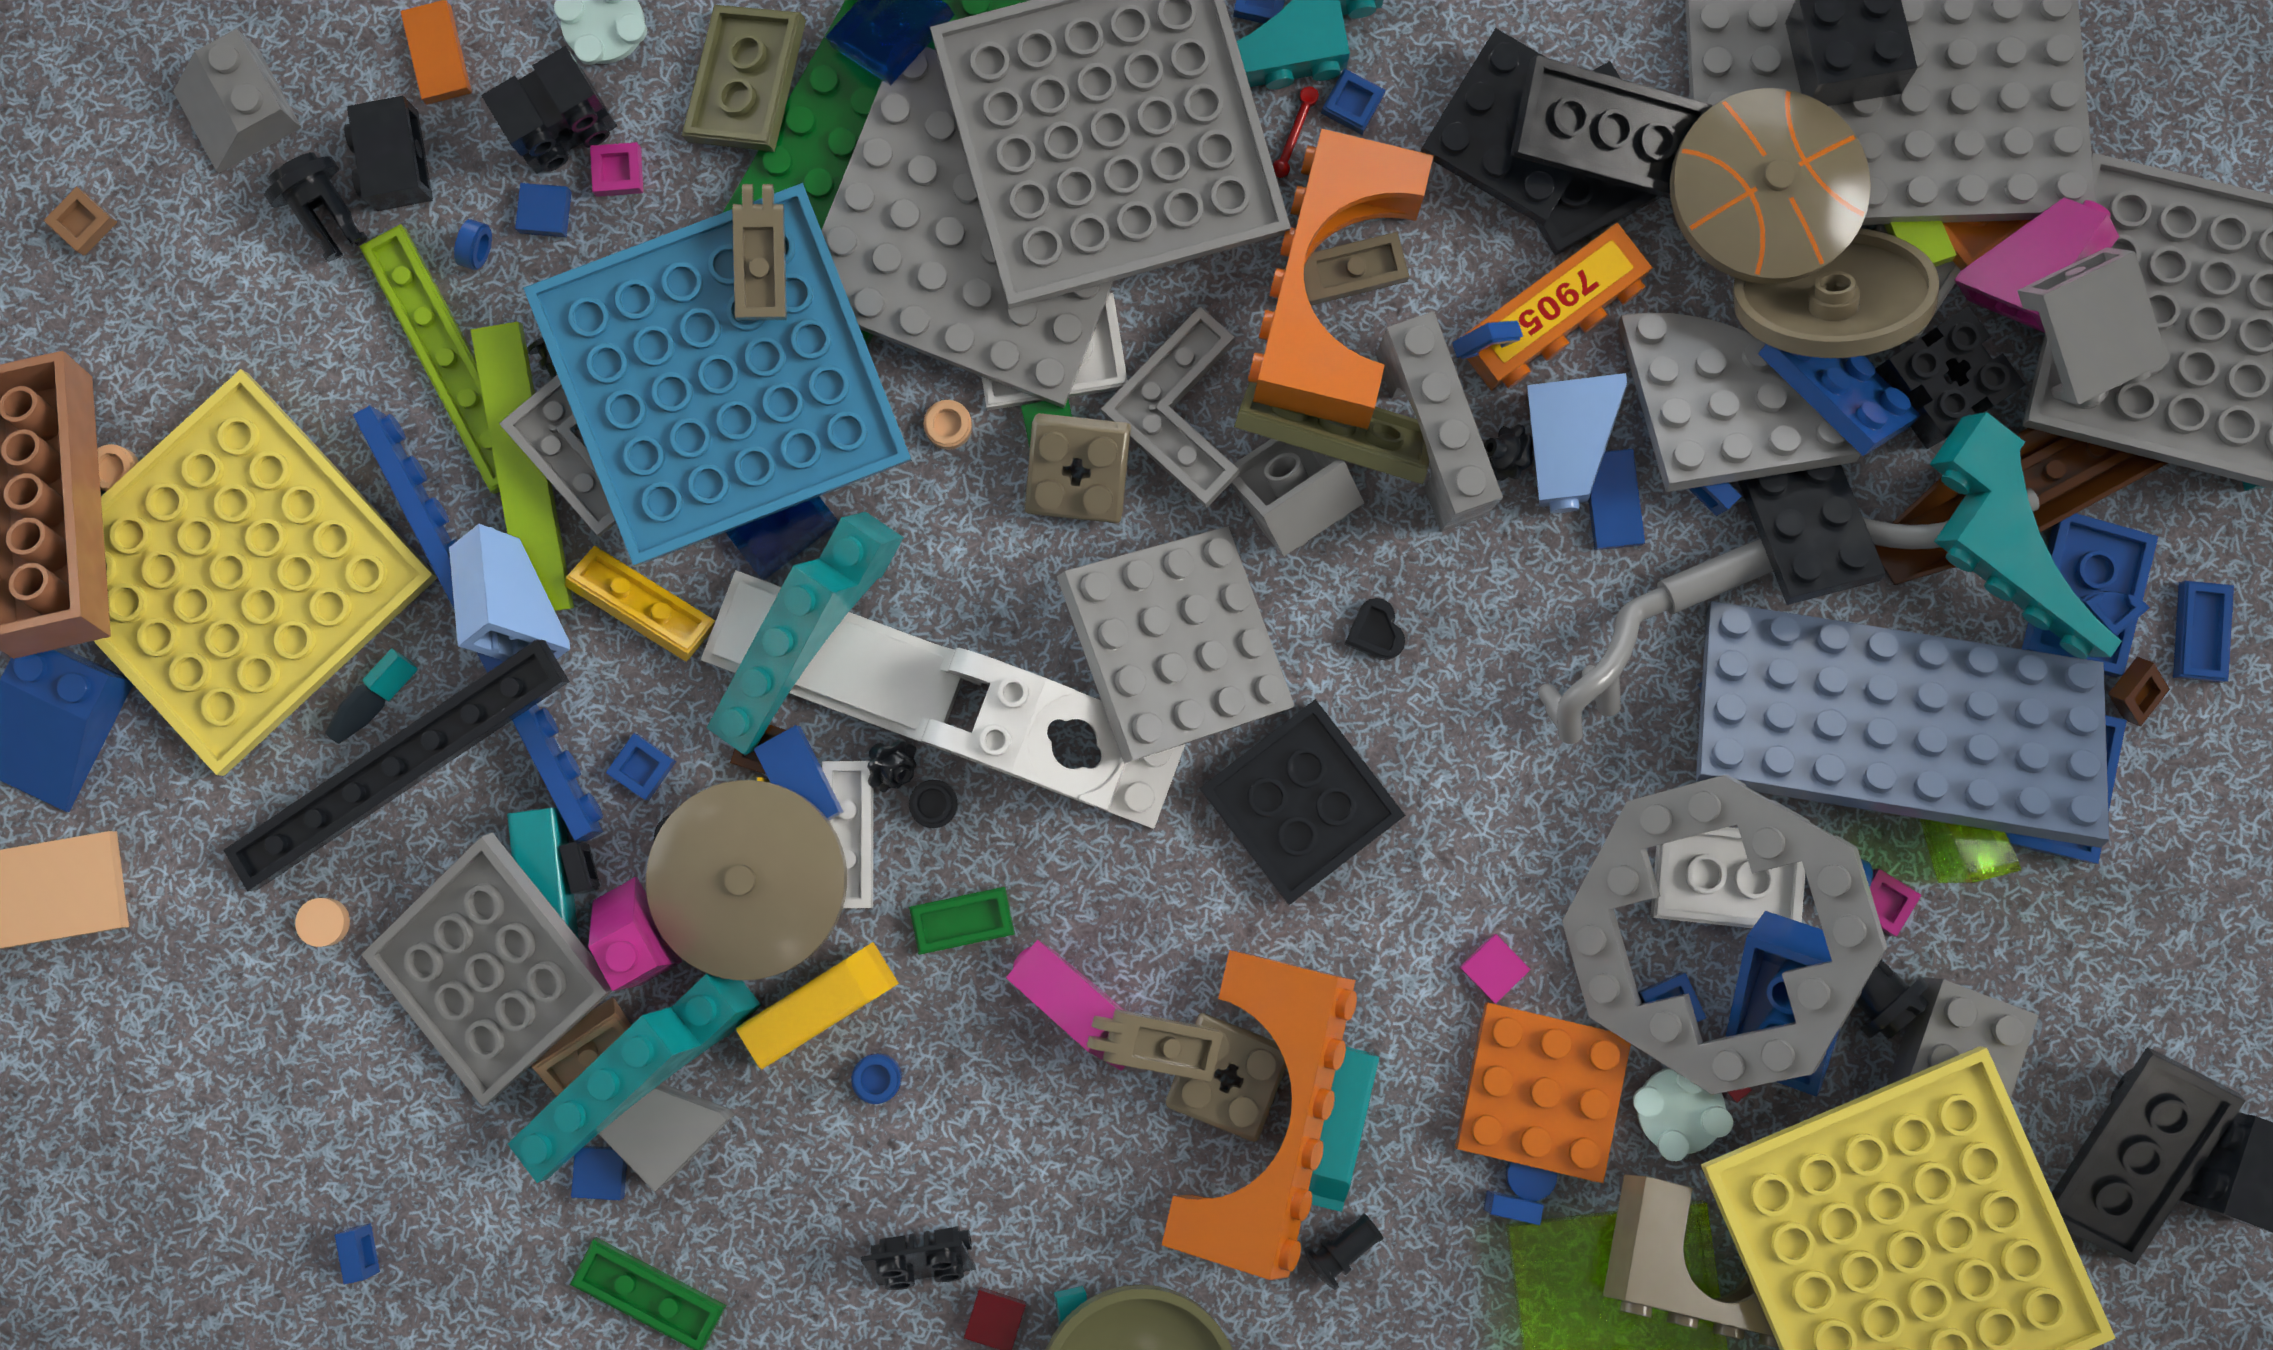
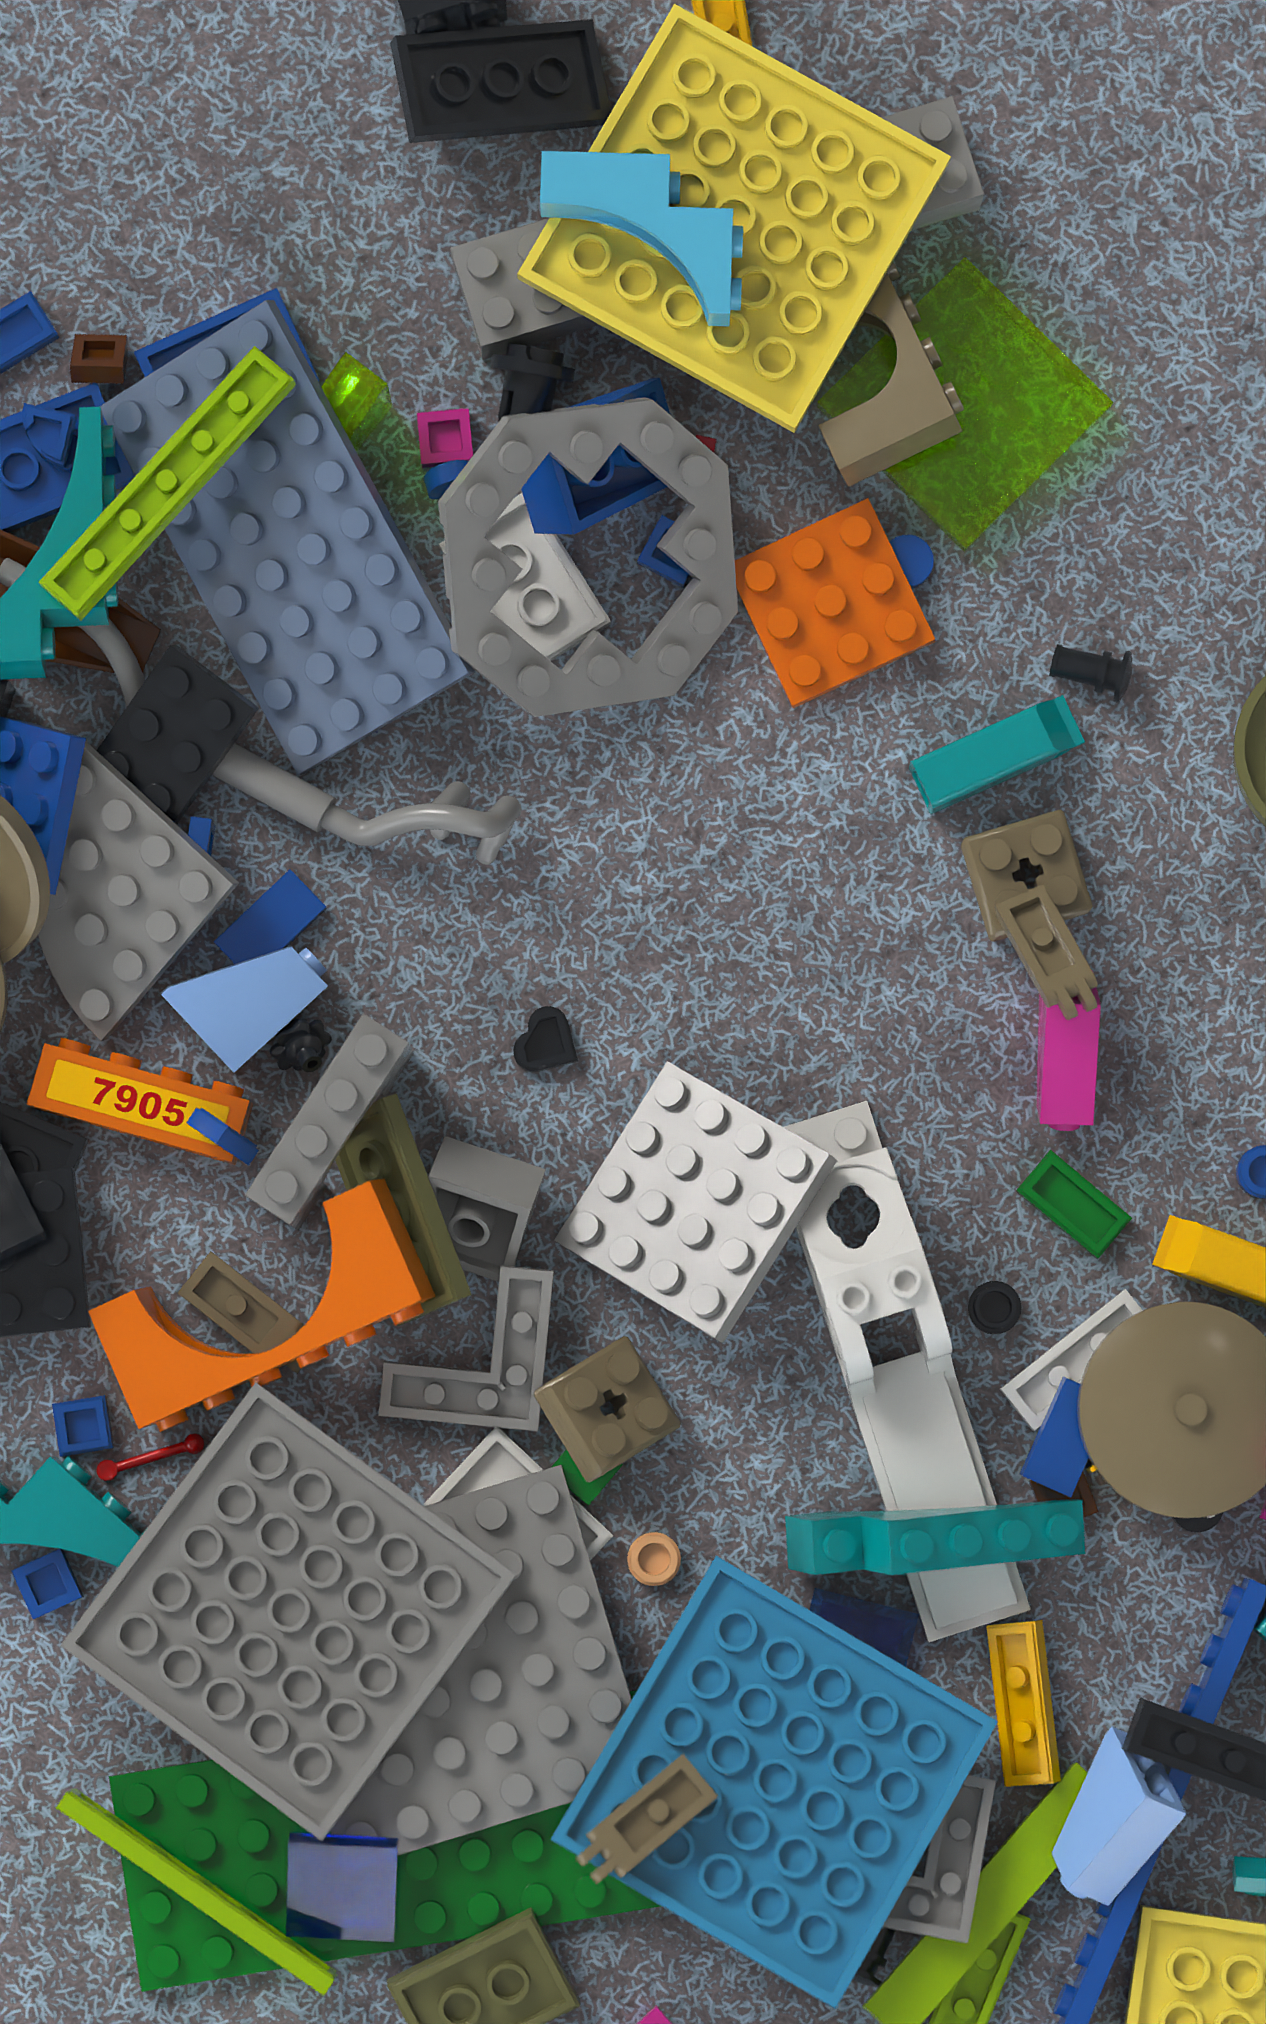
camera: 135 degrees left, 0 degrees up
(641, 766) = (1162, 1588): blue tile -> none
(891, 765) = (990, 1368): black plant -> none
(1262, 1221) = (928, 845): orange arch -> none
(1302, 802) = (745, 991): black plate -> none
(1494, 968) = (758, 721): dark pink tile -> none
(1513, 1207) = (947, 556): blue tile -> none
(1680, 1114) = (761, 476): light aqua piece -> none
(1981, 1189) = (635, 196): none -> medium azure arch
(2020, 657) = (167, 483): none -> lime tile

